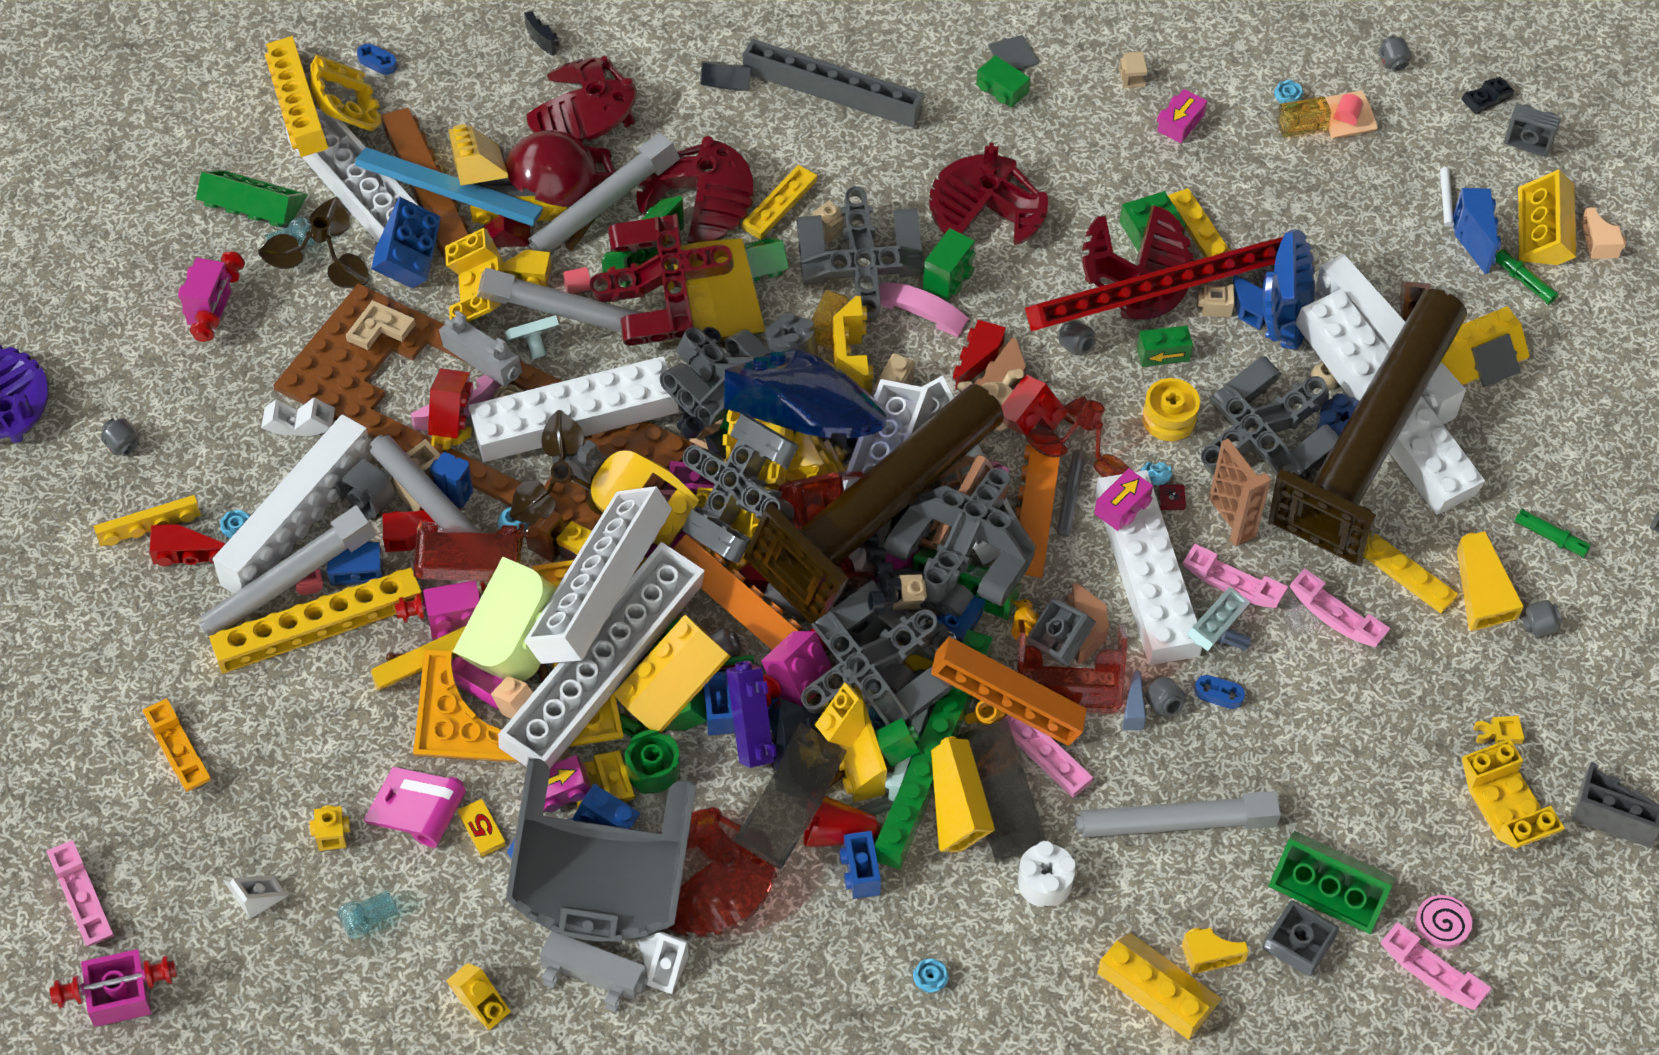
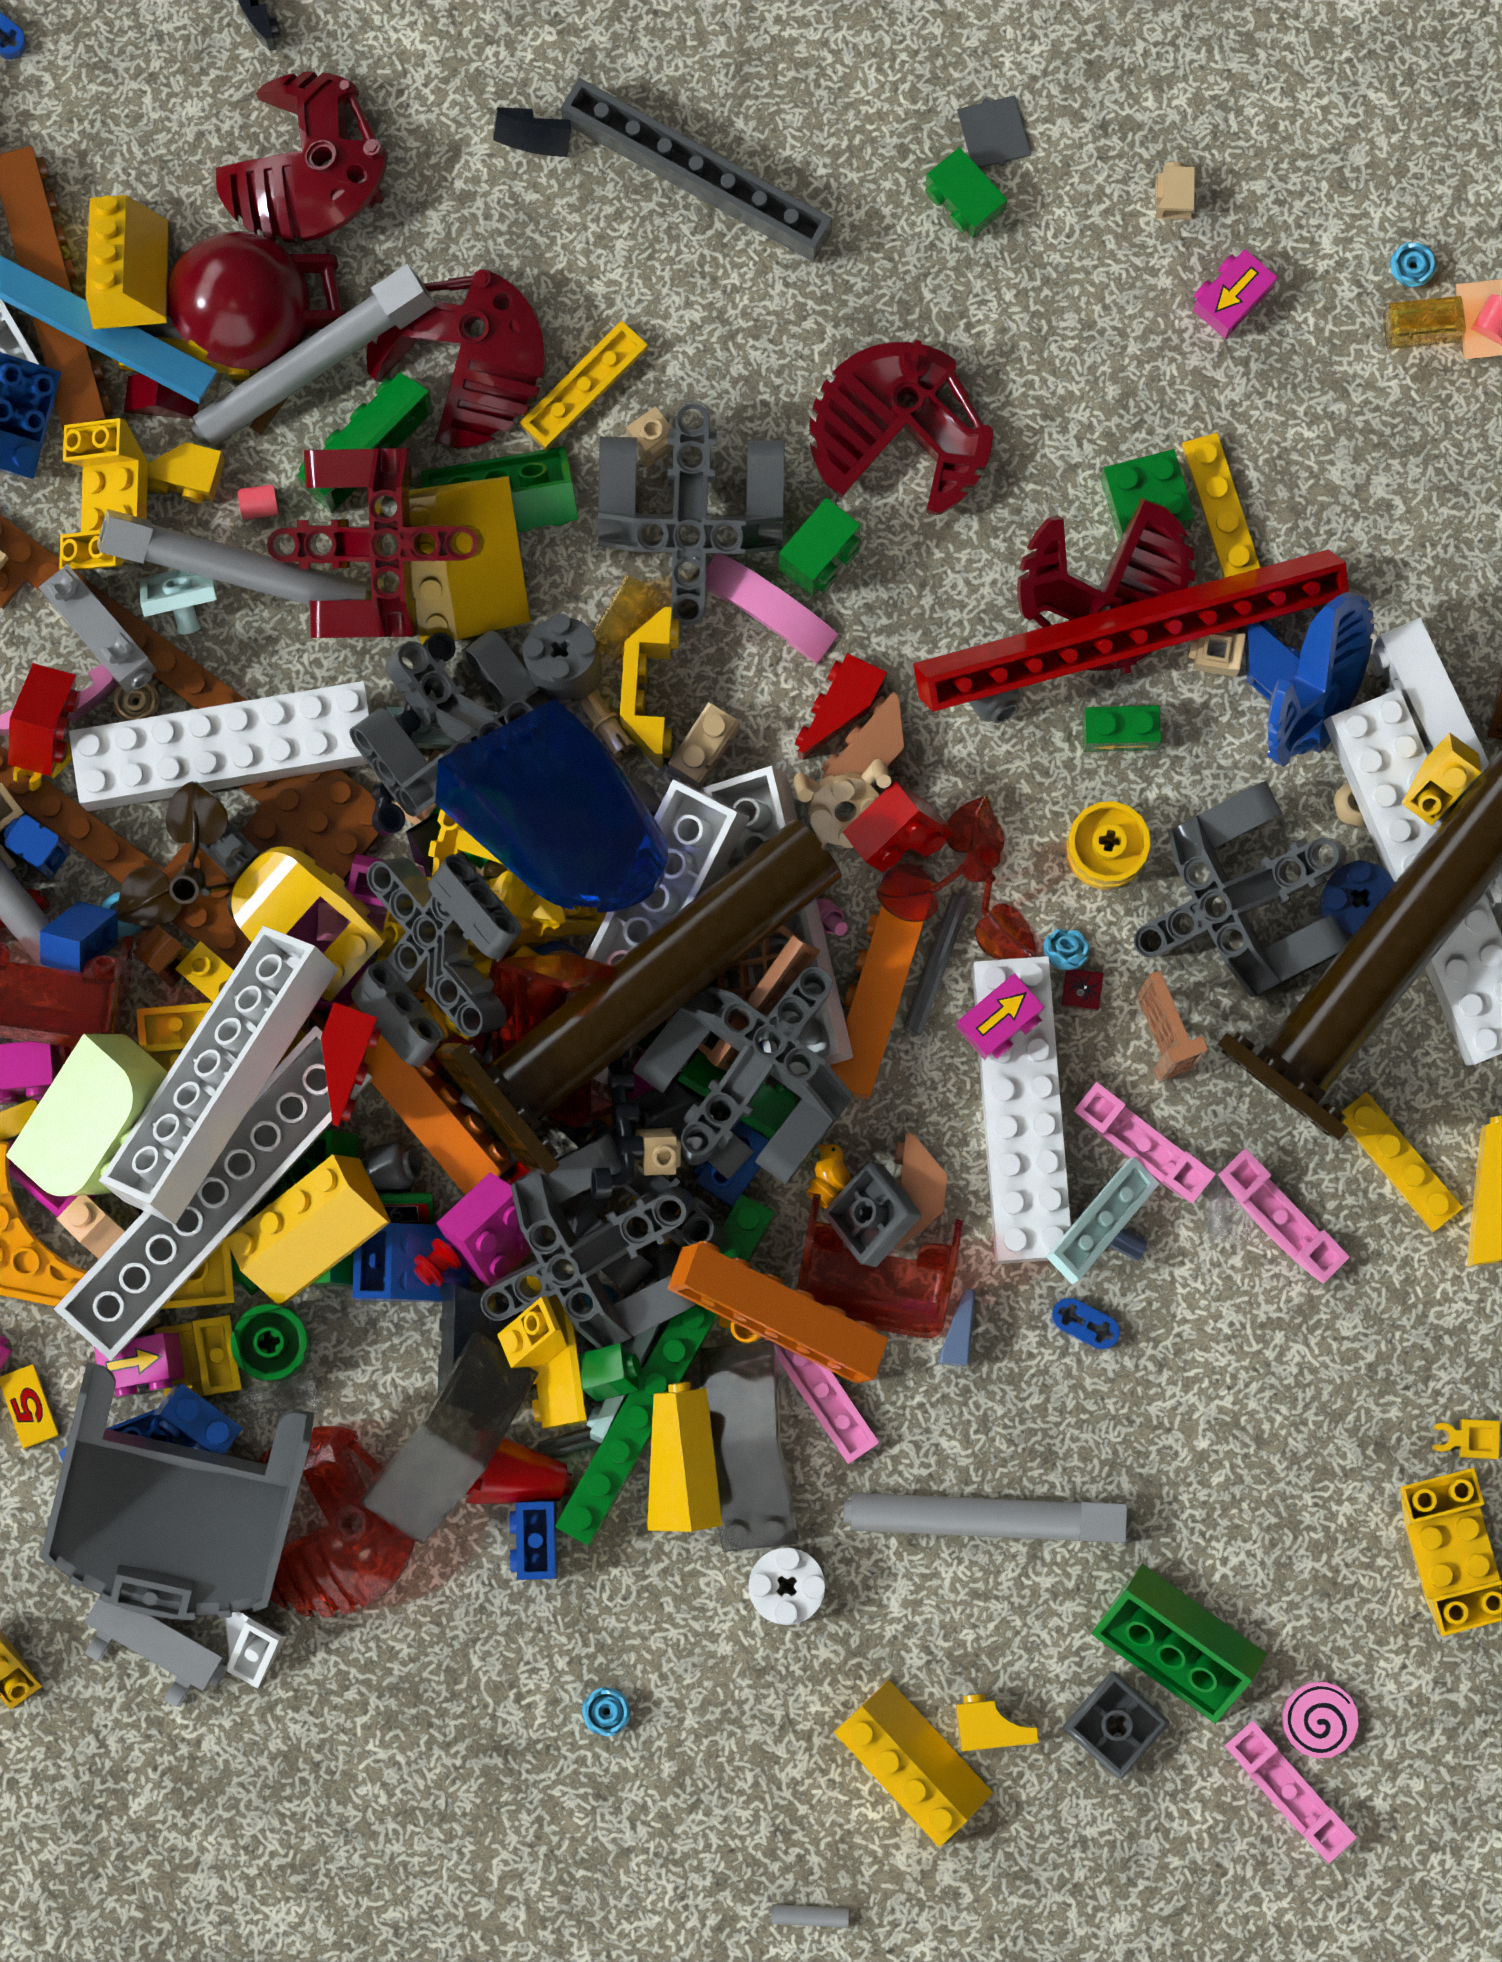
camera: 10 degrees right, 25 degrees up
(486, 521) = (78, 936): none -> blue panel
(684, 545) = (344, 1047): none -> red slope
(750, 714) = (411, 1304): dark purple brick -> none
(1165, 697) = (1005, 1327): dark grey head -> none
(1383, 329) = (1442, 779): none -> yellow slope

